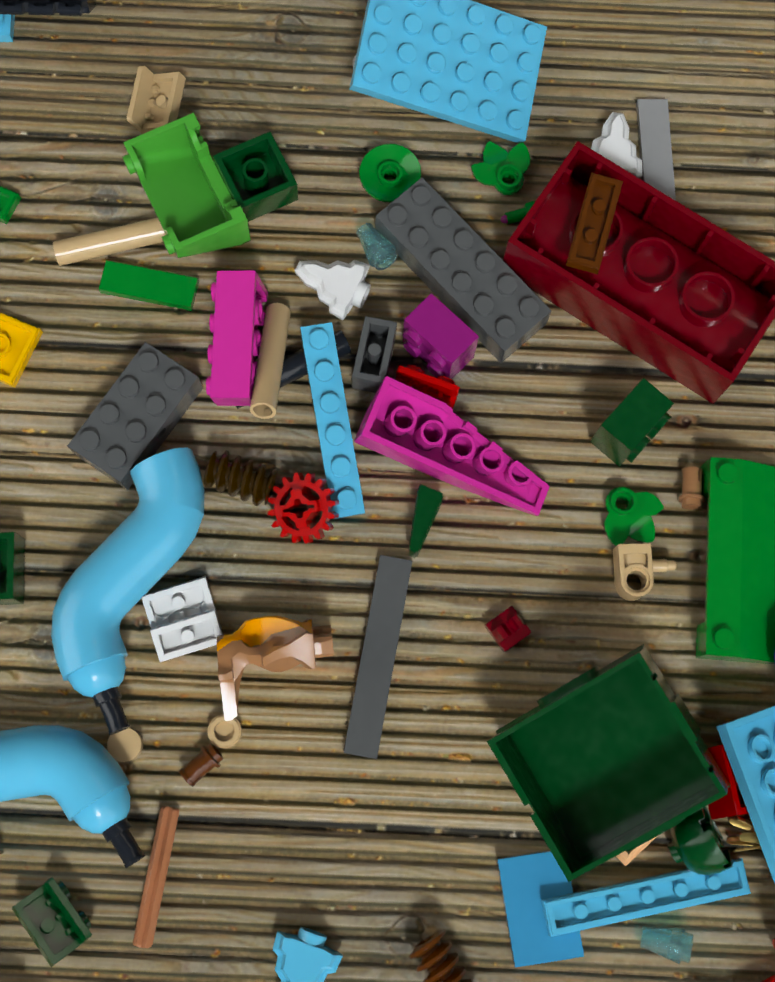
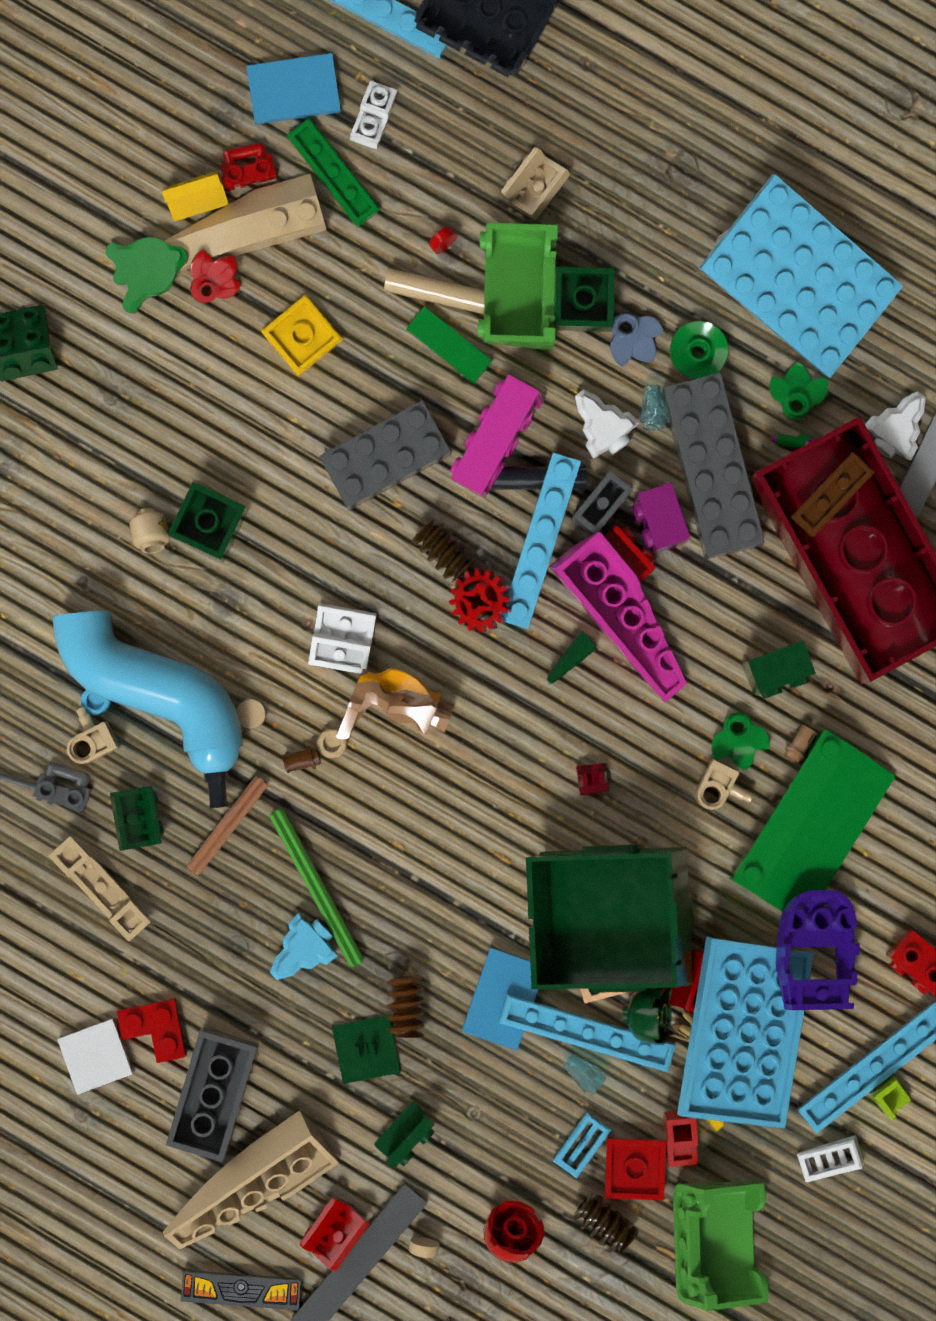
camera: 30 degrees right, 10 degrees up
(93, 191) = (443, 239): none -> red tile
(121, 573) = (314, 581): medium azure animal -> none
(270, 361) = (515, 467): tan piece -> none
(284, 893) = (316, 887): none -> bright green axle
(328, 195) = (636, 342): none -> sand blue plate
(378, 657) = (480, 747): dark grey tile -> none

